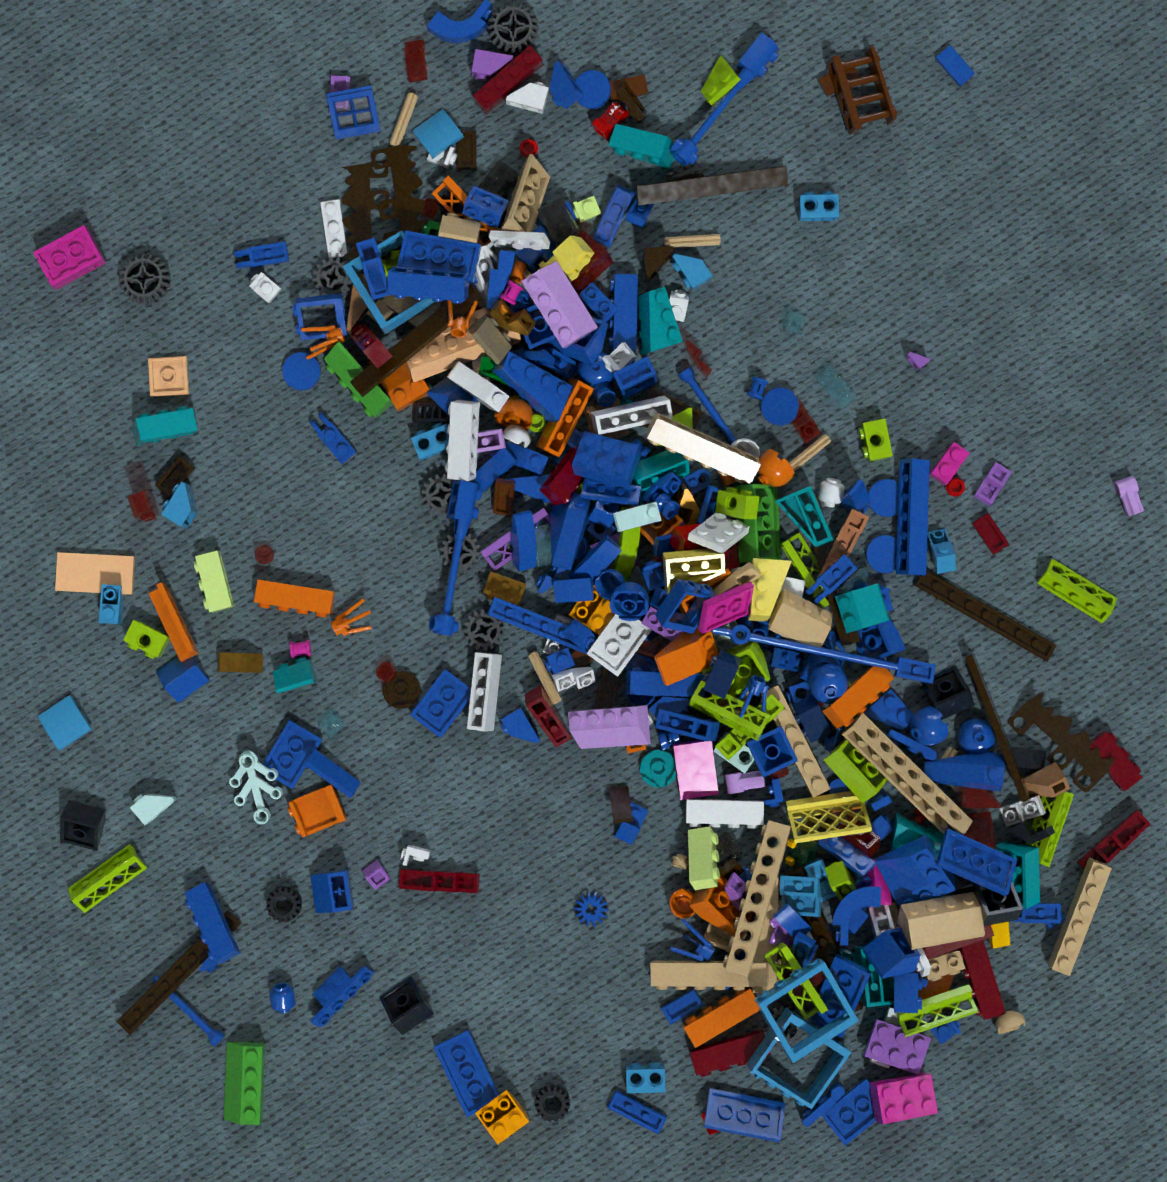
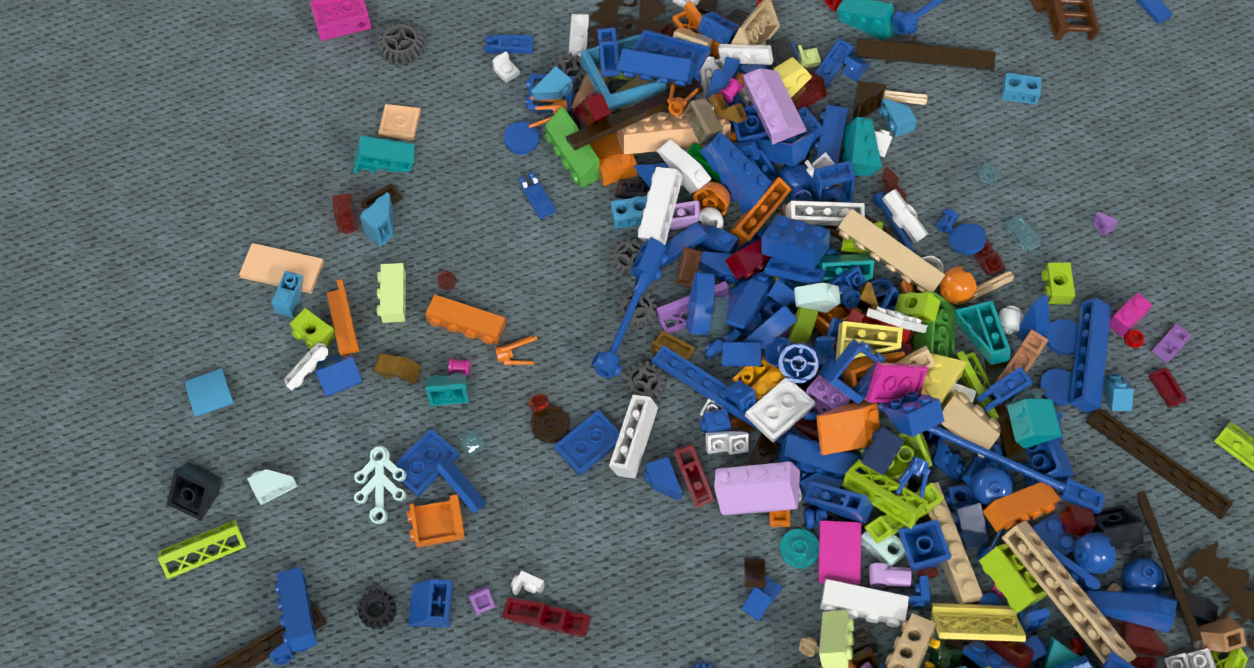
camera: 15 degrees right, 25 degrees down
(151, 680) = (306, 365): none -> white hinge
(323, 317) = (552, 86): none -> dark azure slope
(538, 423) = (732, 215): lime plate -> none
(544, 677) = (697, 438): tan axle -> none
(713, 394) = (904, 216): none -> white piece
(746, 636) = (914, 413): none -> blue slope
(912, 695) = (1077, 520): none -> clear red brick

